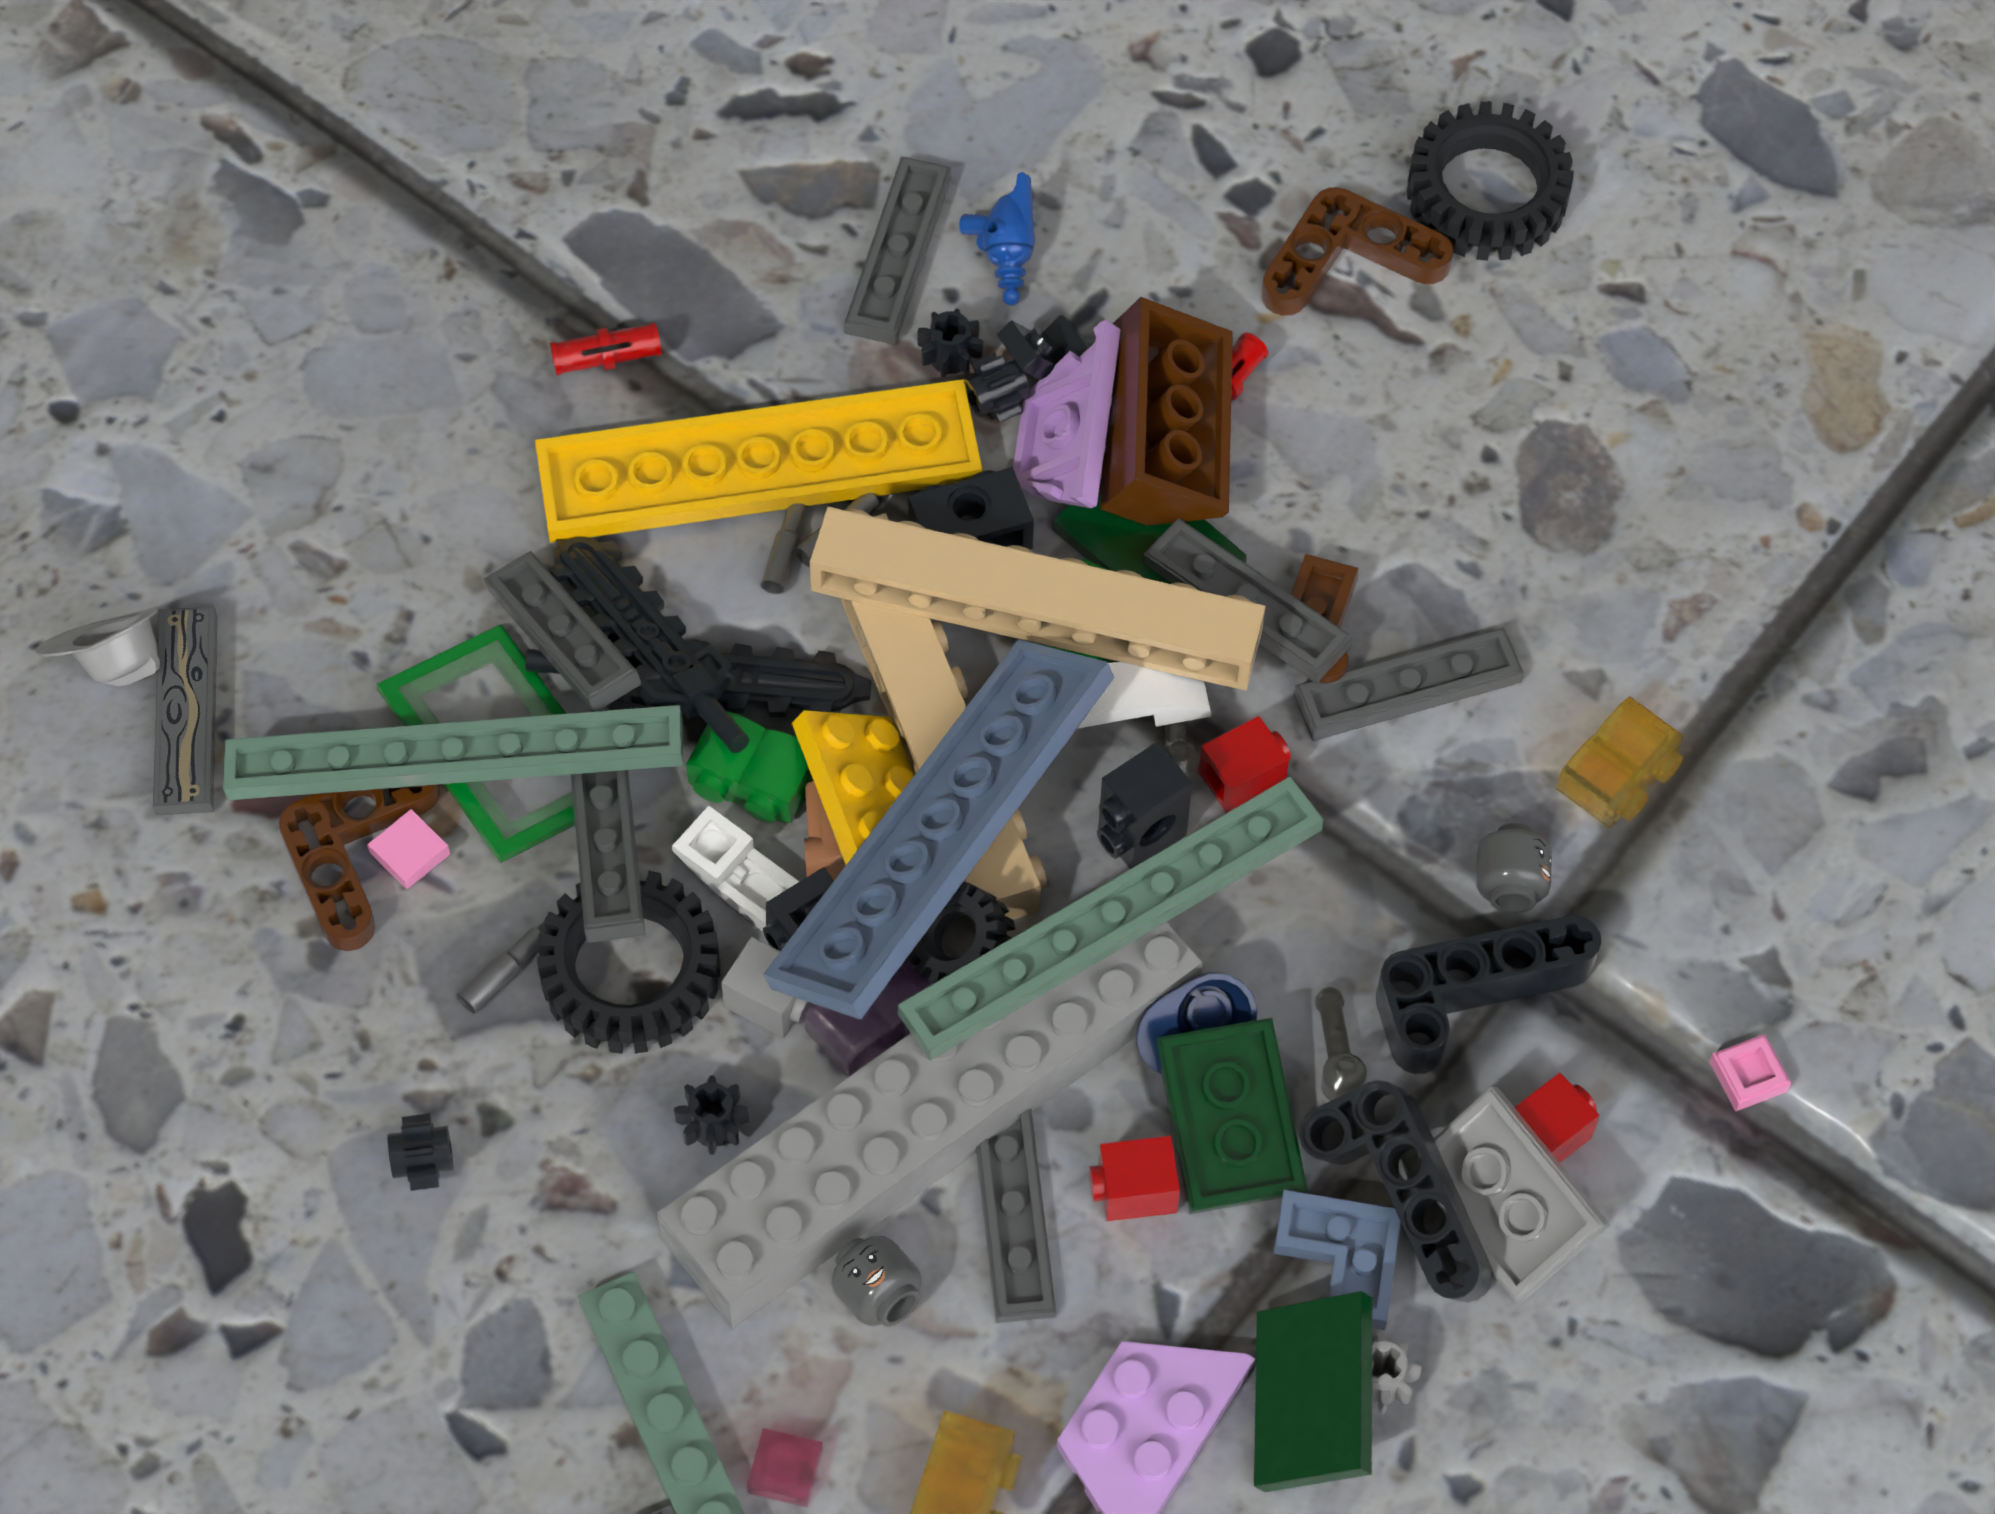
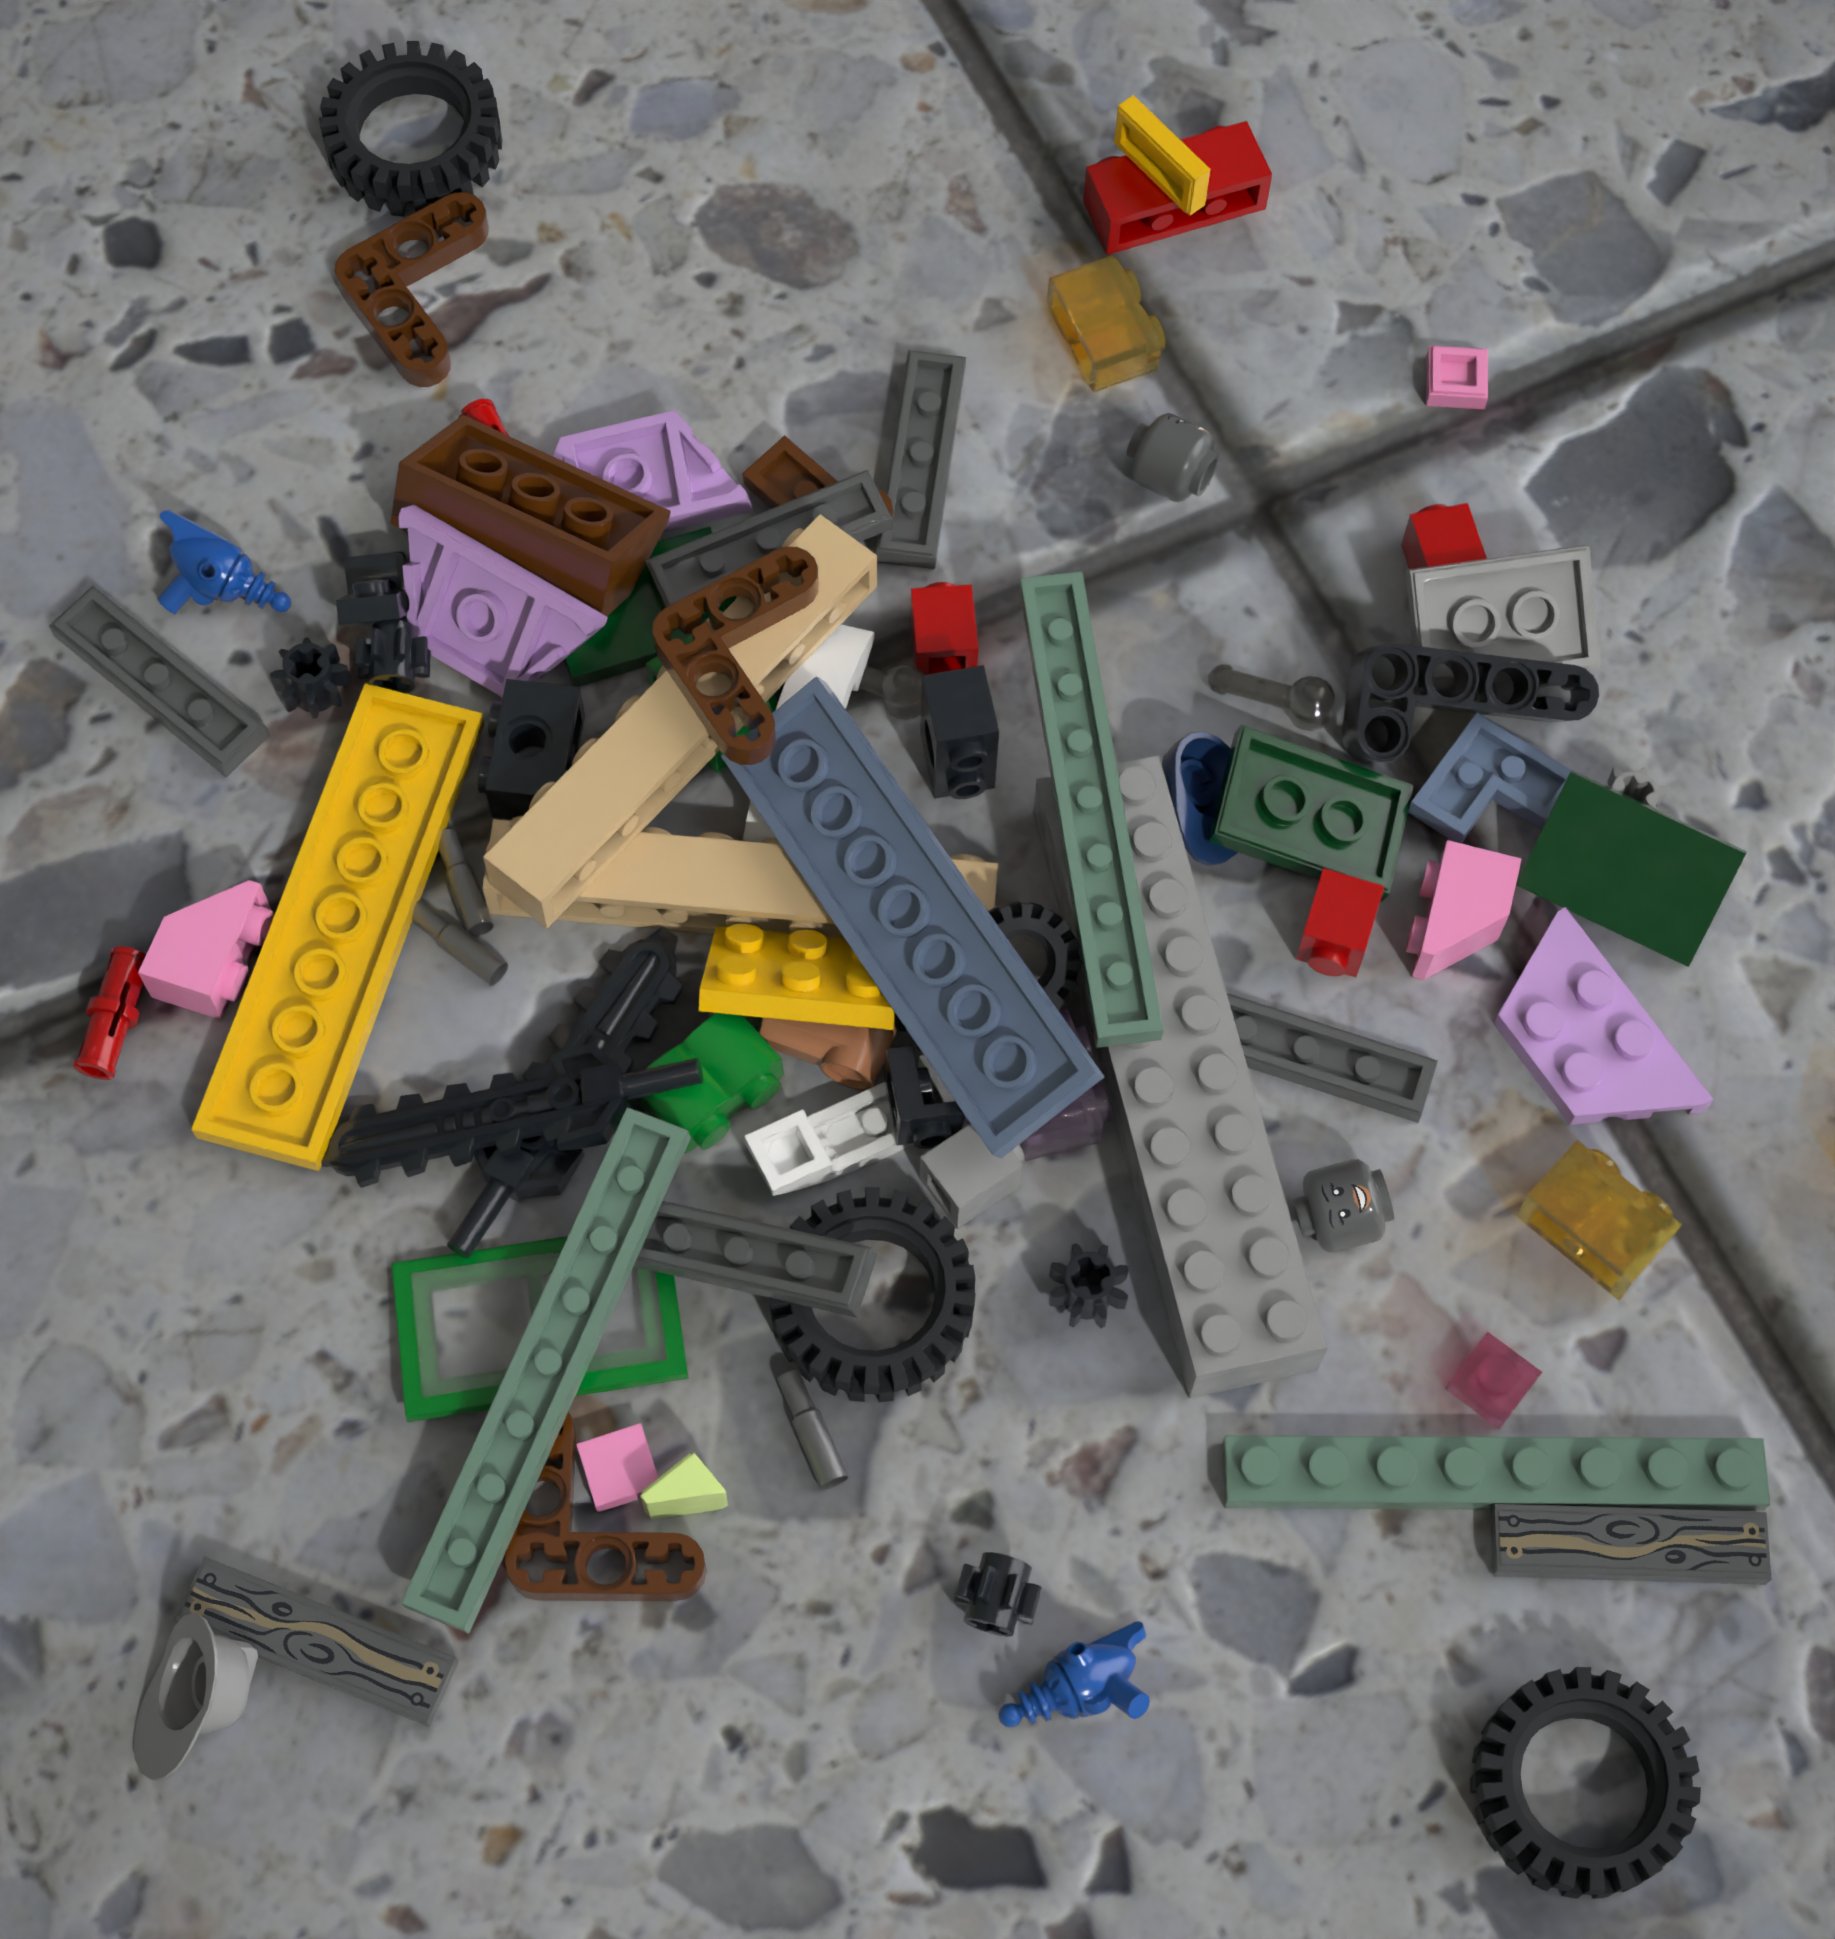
camera: 65 degrees left, 5 degrees up
(381, 1247) = (1084, 1681): none -> blue piece
(407, 895) = (684, 1491): none -> yellowish green slope
(563, 631) = (452, 1196): dark grey tile -> none
(686, 381) = (205, 950): none -> bright pink slope
(1090, 575) = (711, 650): none -> reddish brown beam
(1204, 1273) = (1467, 906): none -> bright pink slope
(1271, 490) = (660, 463): none -> lavender wing
(1557, 955) = (1268, 532): black beam -> none
(1791, 721) = (1161, 155): none -> yellow tile
(1797, 762) = (1135, 211): none -> red brick

